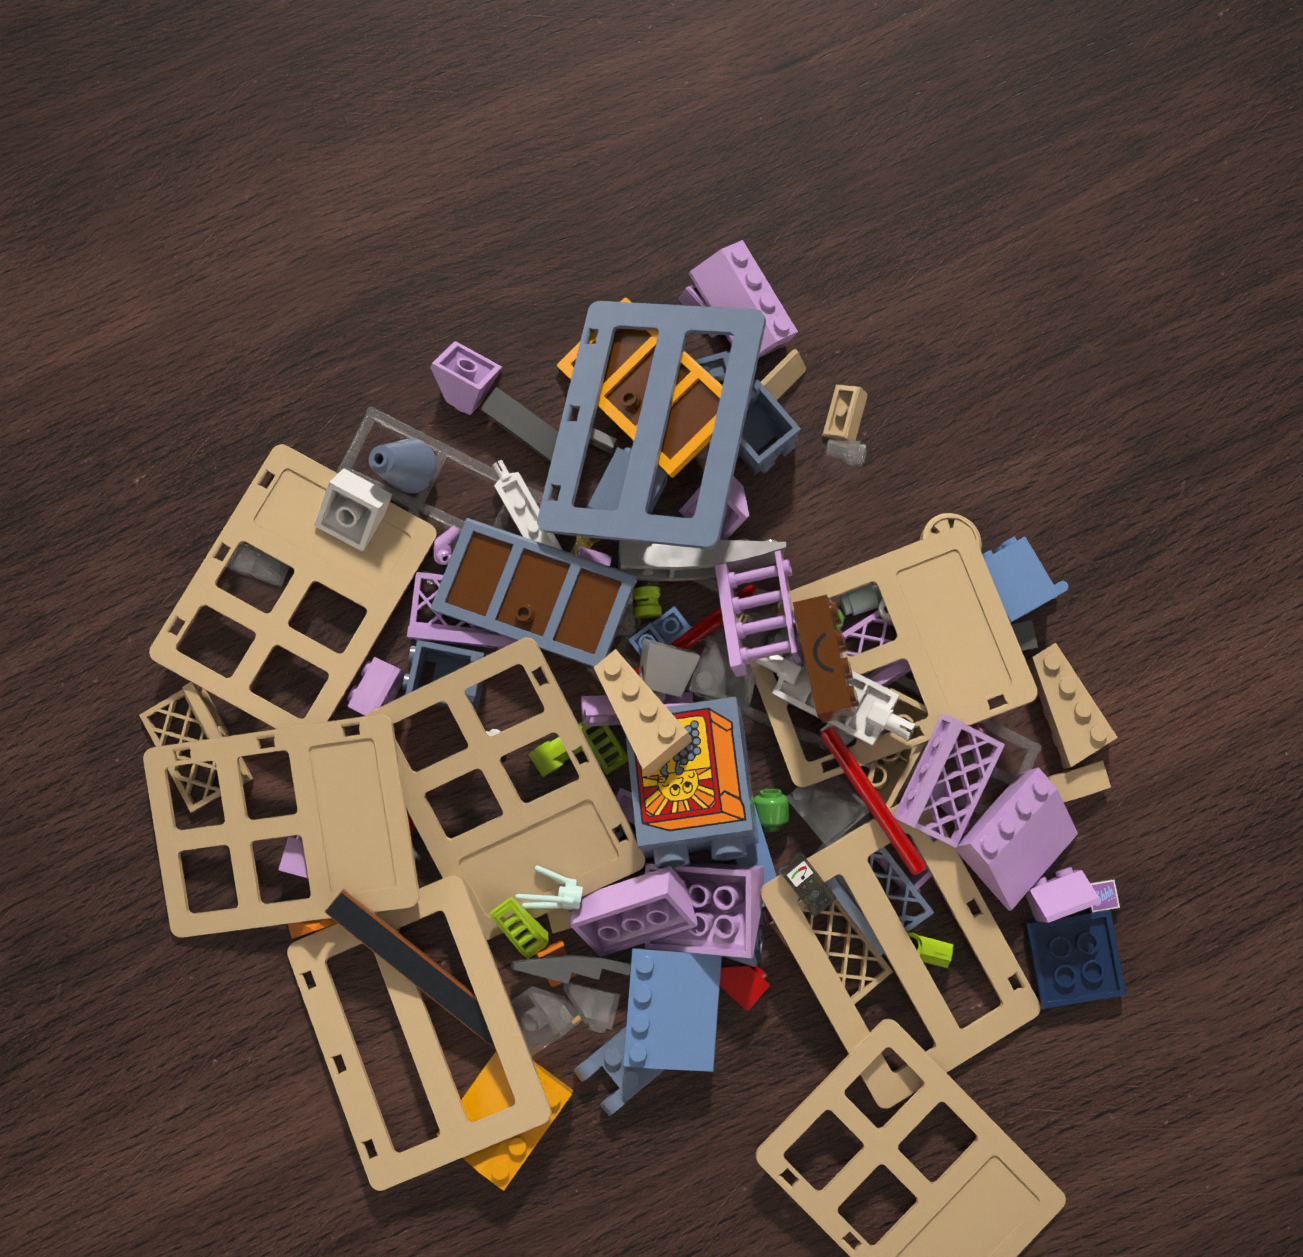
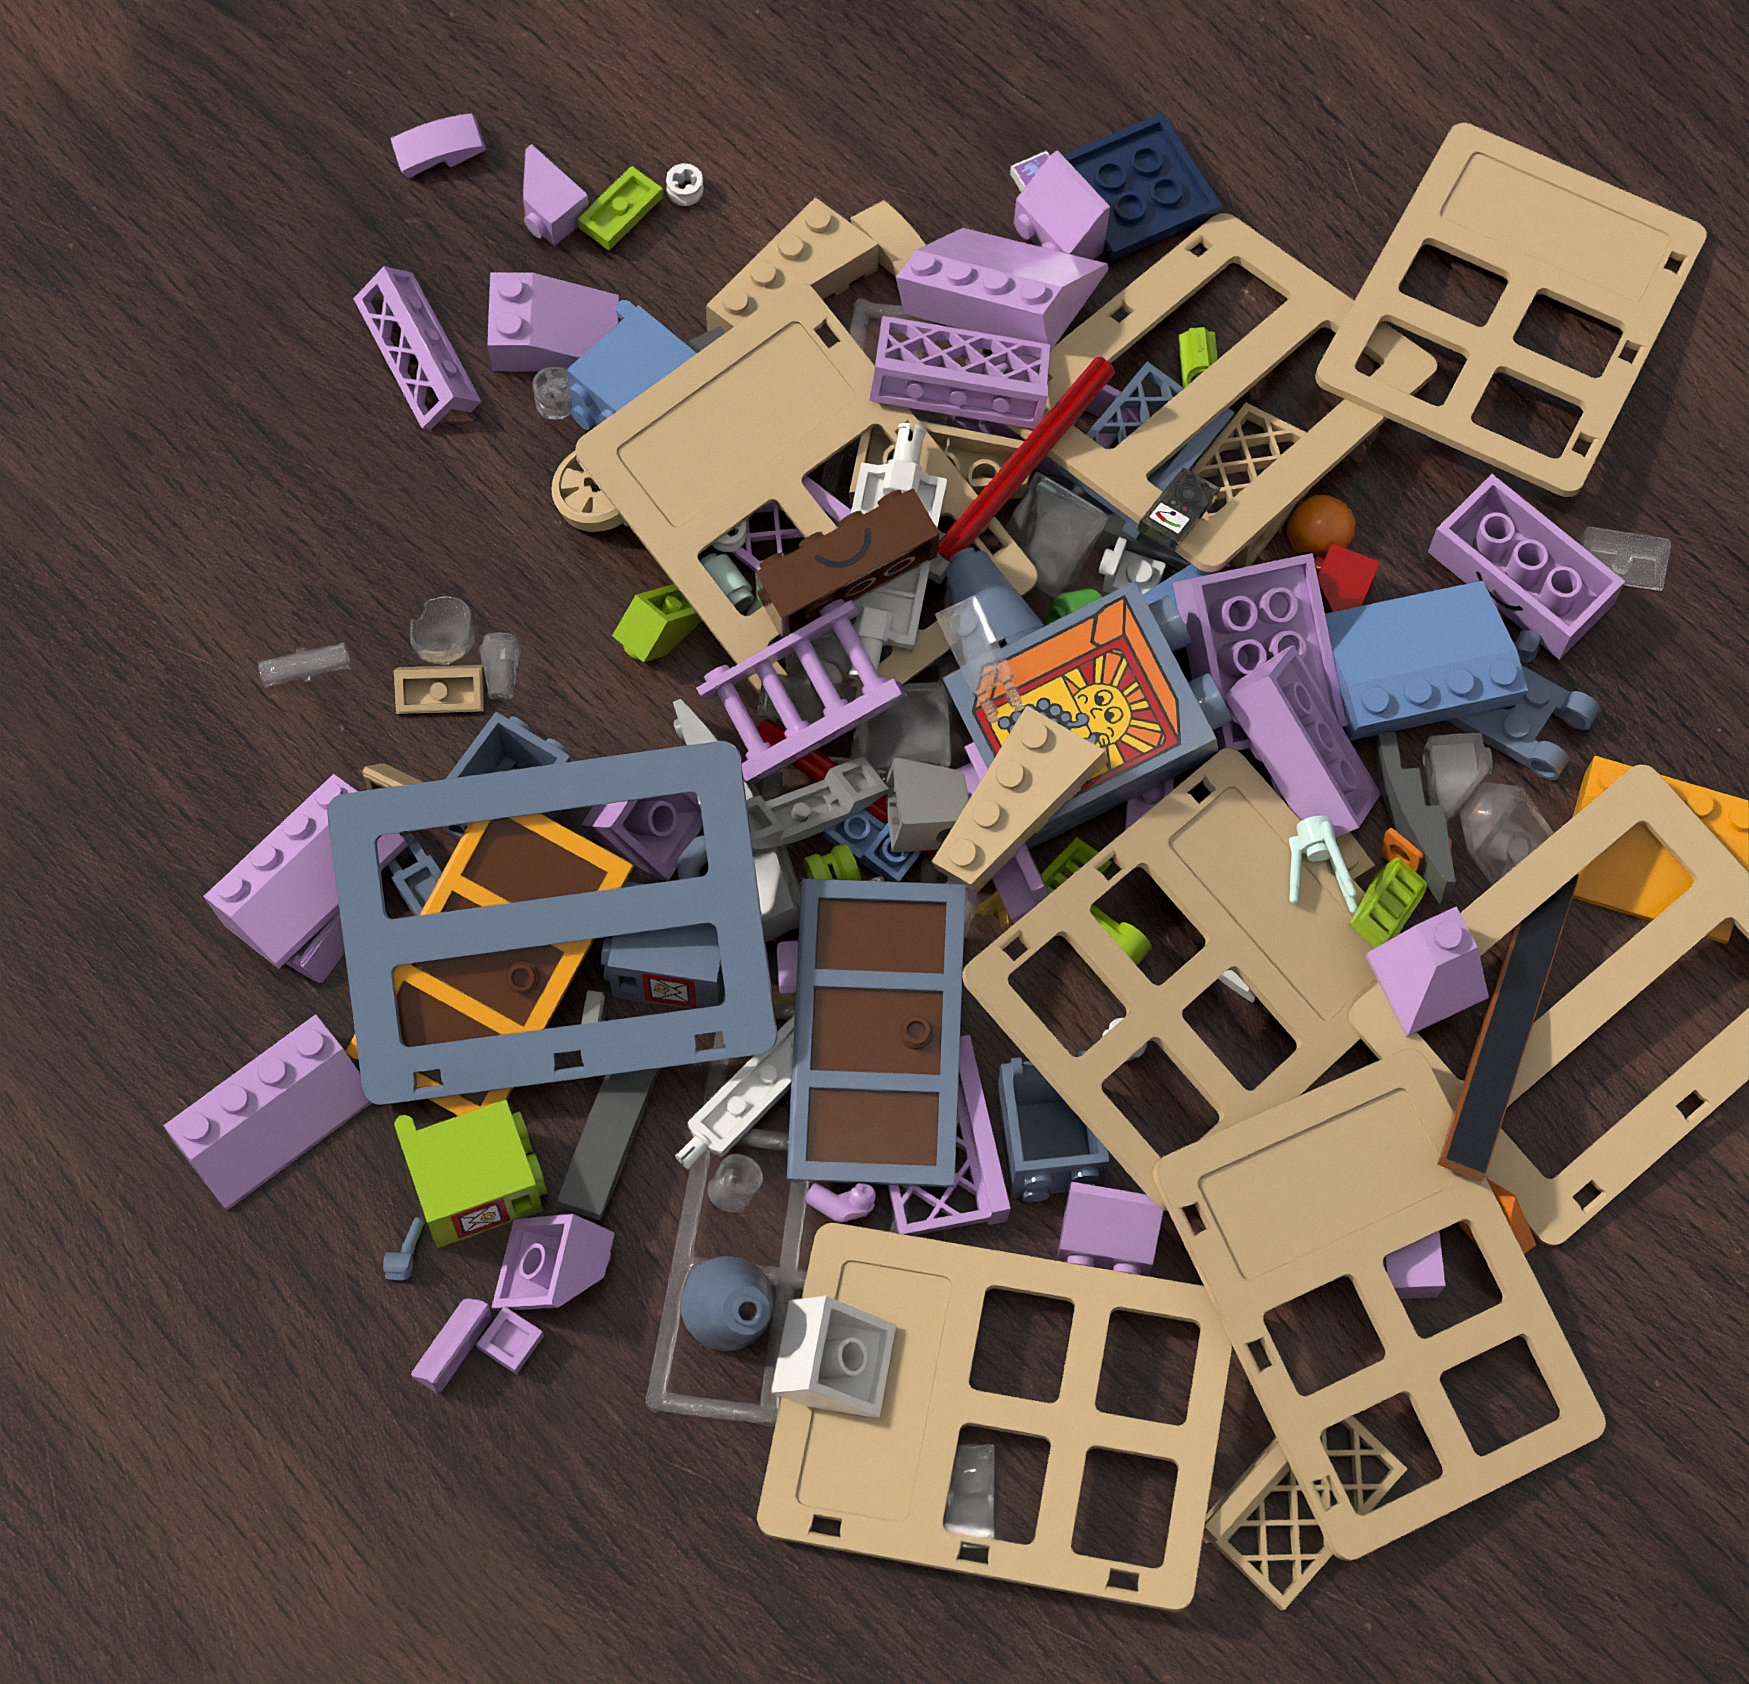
camera: 105 degrees left, 15 degrees down
(430, 344) = (510, 1340): none -> lavender plate
(440, 313) = (452, 1344): none -> lavender slope
(462, 930) = (1430, 971): none -> lavender slope
(475, 485) = (736, 1194): none -> clear wheel
(495, 299) = (400, 1264): none -> sand blue hand
(528, 343) = (472, 1171): none -> lime container
(604, 247) = (269, 1112): none -> lavender slope
(667, 1086) = (1527, 645): none -> sand blue hand
(685, 596) = (815, 807): none -> light grey slope
(708, 1176) = (1632, 556): none -> clear slope
(717, 1106) = (1527, 565): none -> lavender brick
(738, 720) = (978, 654): none -> clear hinge
(776, 744) = (1003, 606): none -> sand blue cone
(789, 988) = (1320, 523): none -> orange hair
(791, 848) = (1126, 567): none -> white bracket
(843, 546) = (656, 623): none -> lime slope
(877, 422) = (443, 630): none -> clear hair
(882, 338) = (304, 664): none -> clear pin
(1030, 530) = (552, 382): none -> clear wheel
(1078, 545) = (544, 321): none -> lavender slope
(1087, 465) = (428, 342): none -> lavender fence
(1152, 616) = (620, 208): none -> lime plate
(1168, 662) = (691, 193): none -> white bush
(1170, 571) = (550, 198): none -> lavender slope
(1234, 515) = (441, 140): none -> lavender slope

